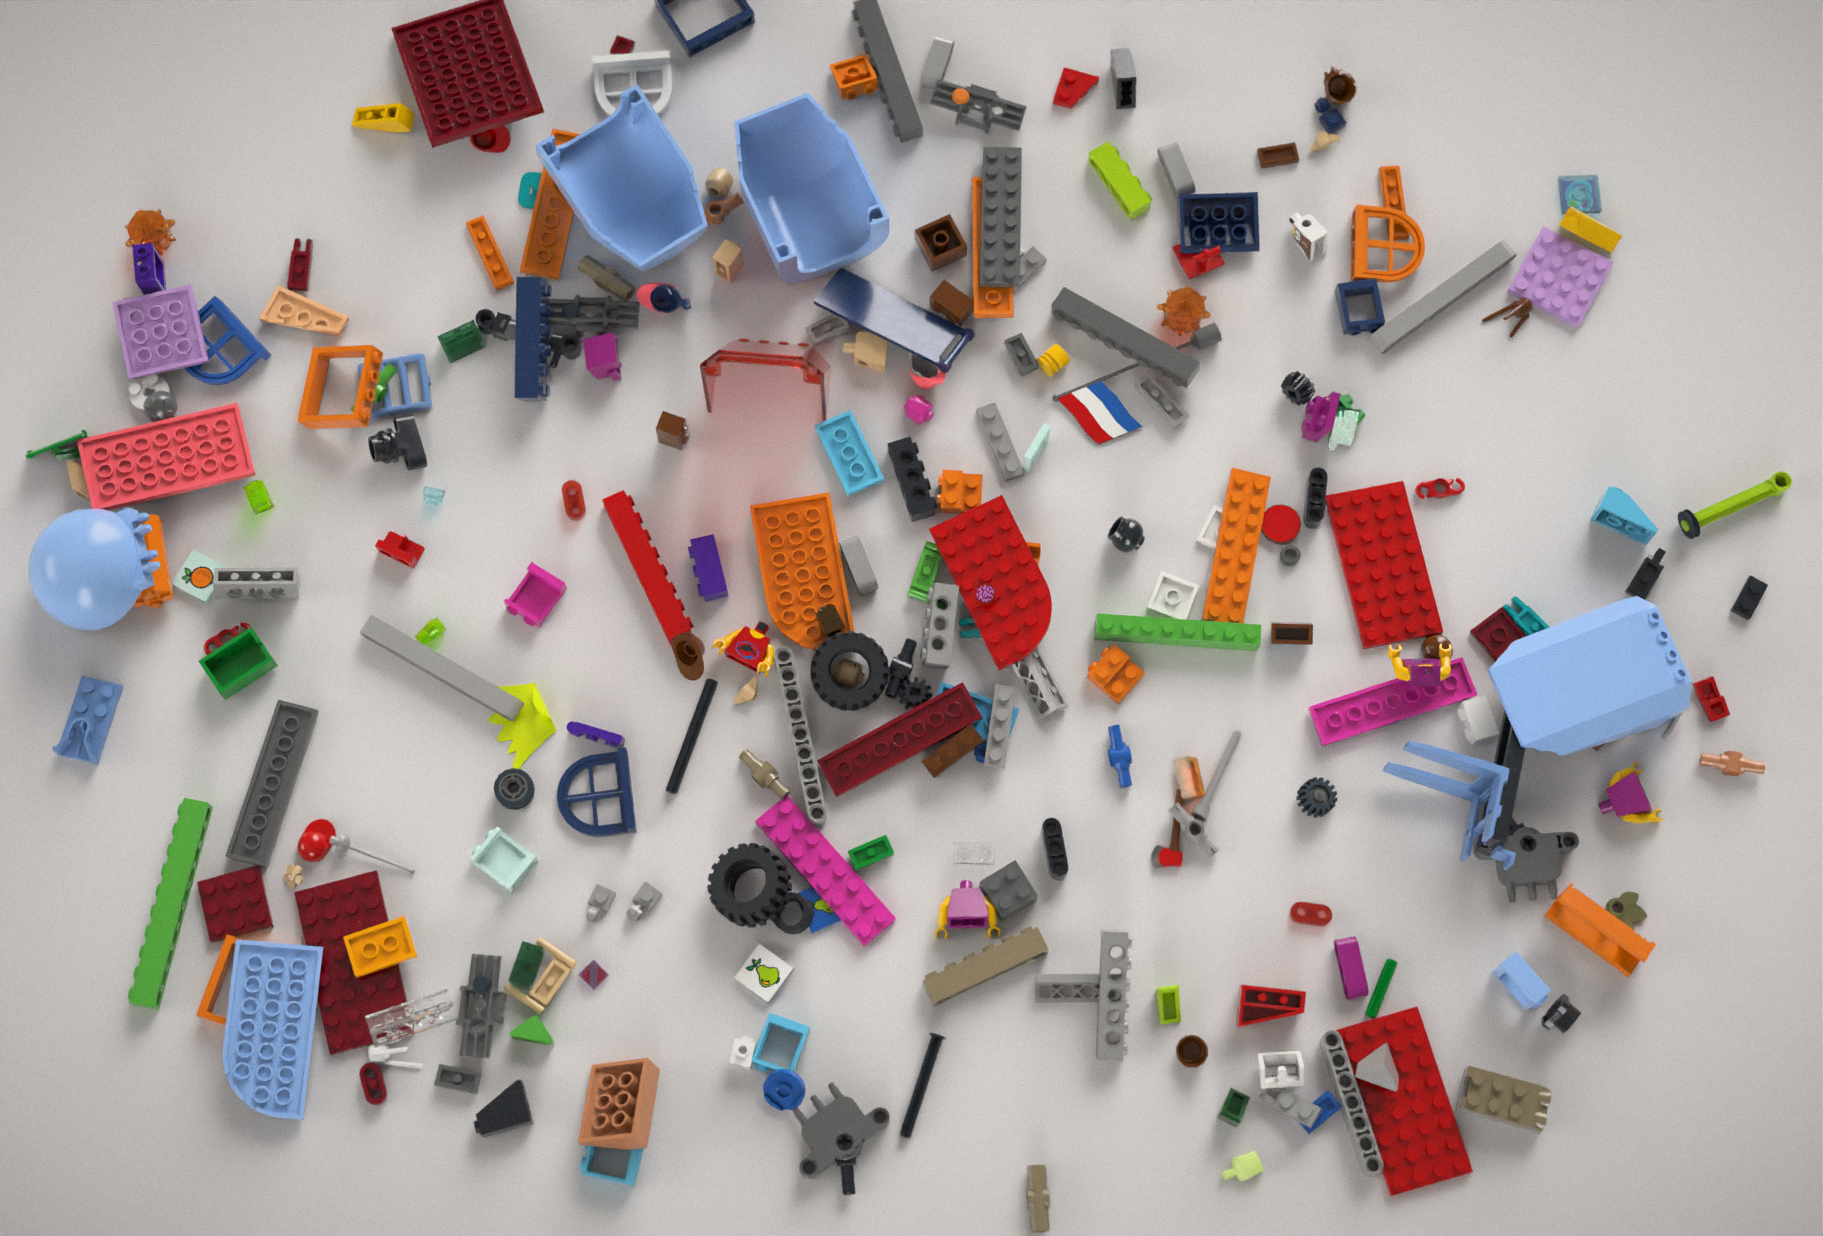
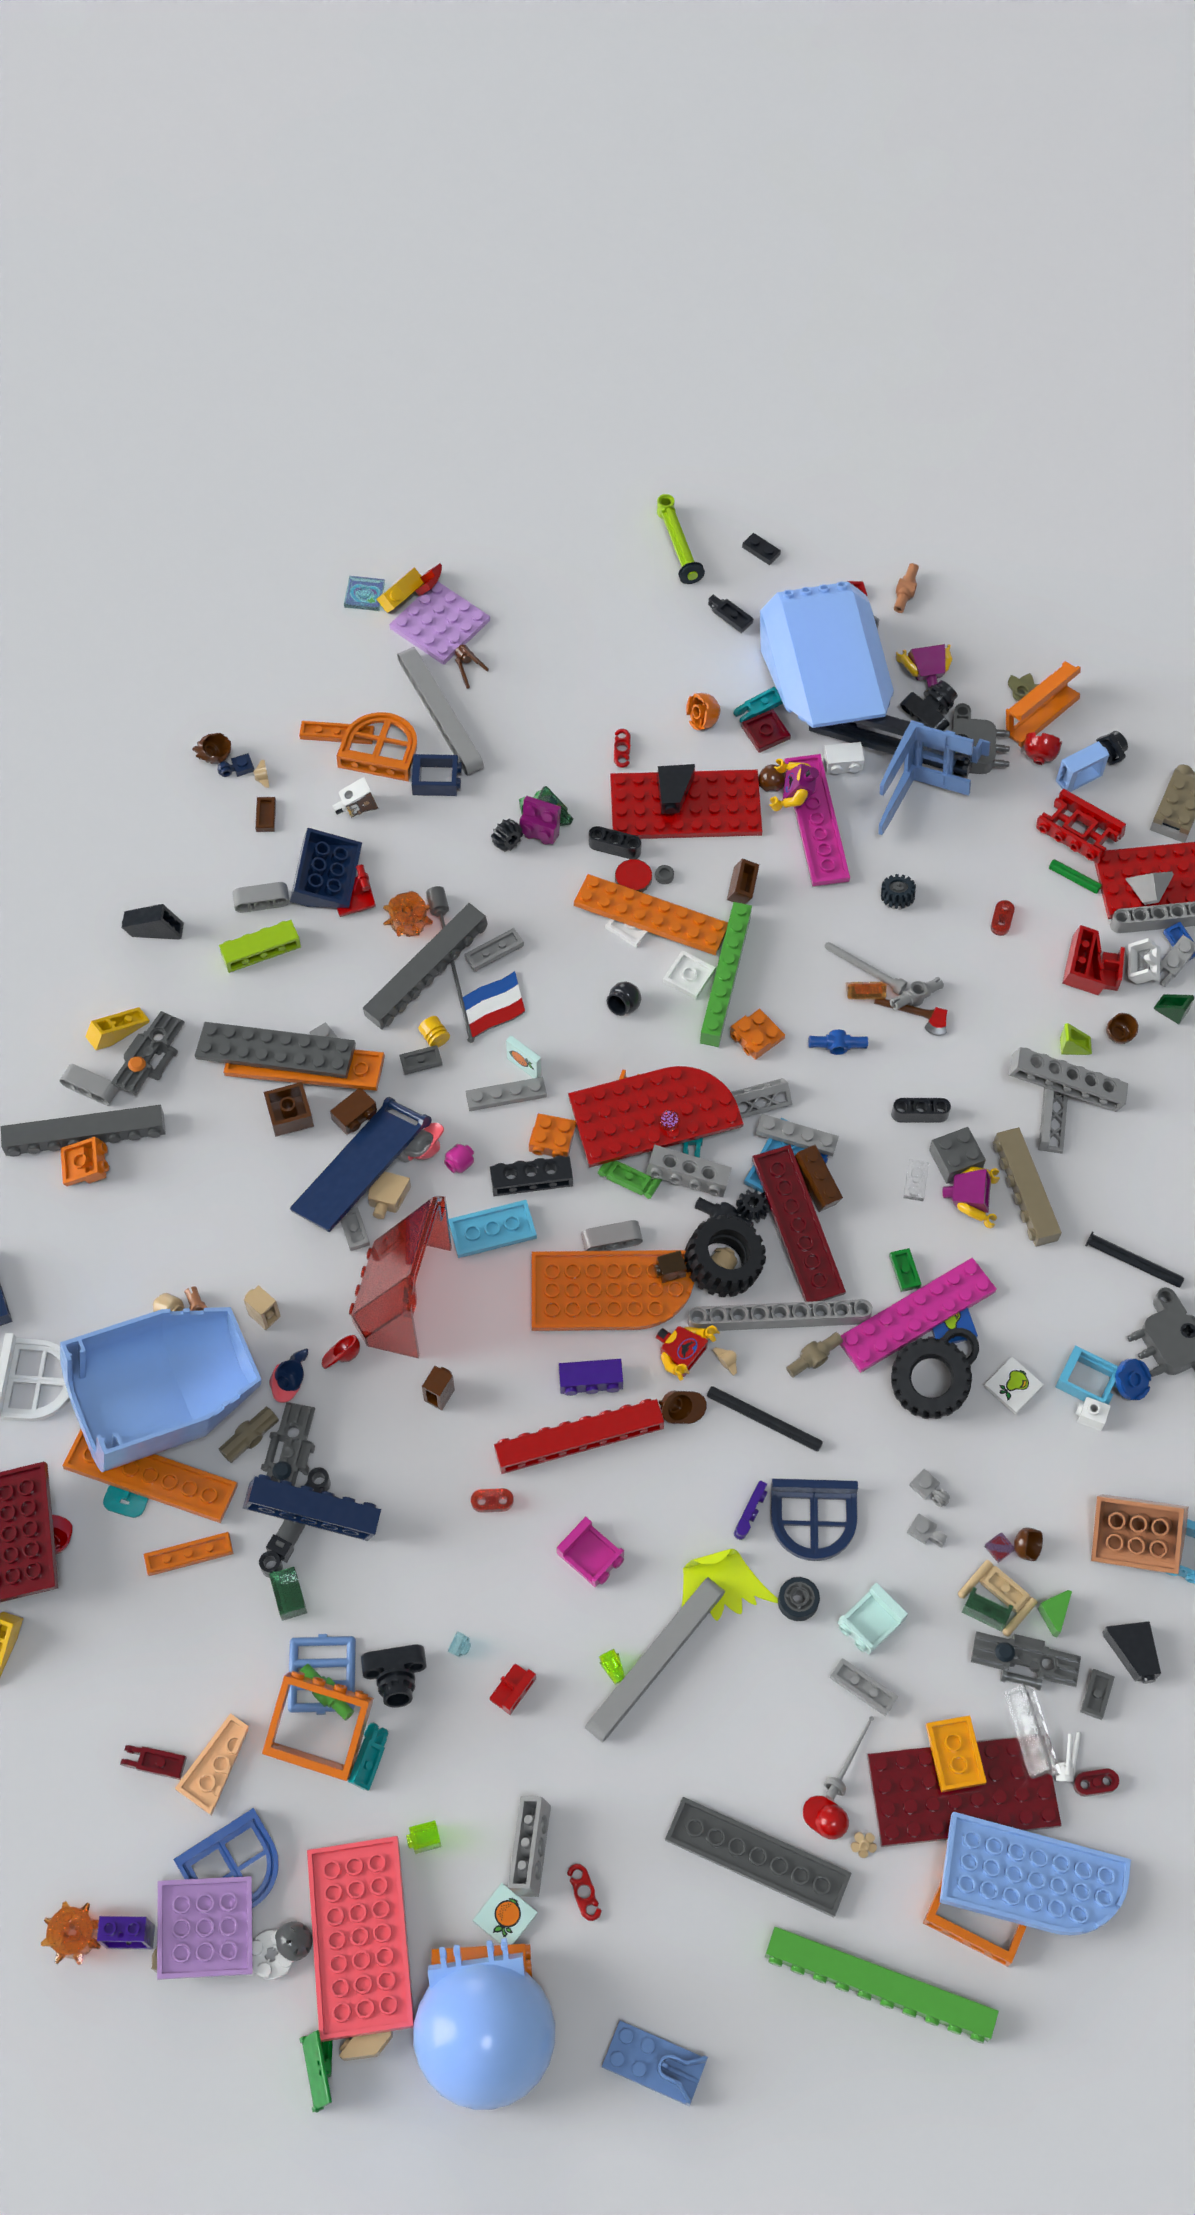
camera: 80 degrees left, 10 degrees down
(235, 903) = (886, 1914): dark red plate -> none
(238, 663) = (619, 1877): green piece -> none
(322, 437) = (369, 1757): none -> teal hinge
(438, 859) = (864, 1687): none -> light grey plate
(596, 1000) = (1028, 1544): none -> reddish brown hair
(603, 356) = (340, 1443): magenta plate -> none
(699, 342) = (342, 1351): none -> red cap
(807, 190) = (207, 1209): light blue windscreen -> none
(1002, 72) = (113, 1028): none -> yellow slope
(1072, 87) = (148, 971): red wing -> none
(1267, 1036) = (1113, 968): none -> red panel
(1351, 968) = (1055, 894): magenta beam -> none
(1393, 544) = (674, 786): none -> black slope
(1458, 995) = (1086, 814): none -> red fence
(1504, 564) = (702, 710): none -> orange cylinder
(1540, 934) = (1042, 748): none -> red cylinder
(1561, 803) = (937, 700): none -> black beam
(1613, 255) = (429, 579): none -> red slope
(1623, 515) = (676, 615): medium azure slope -> none

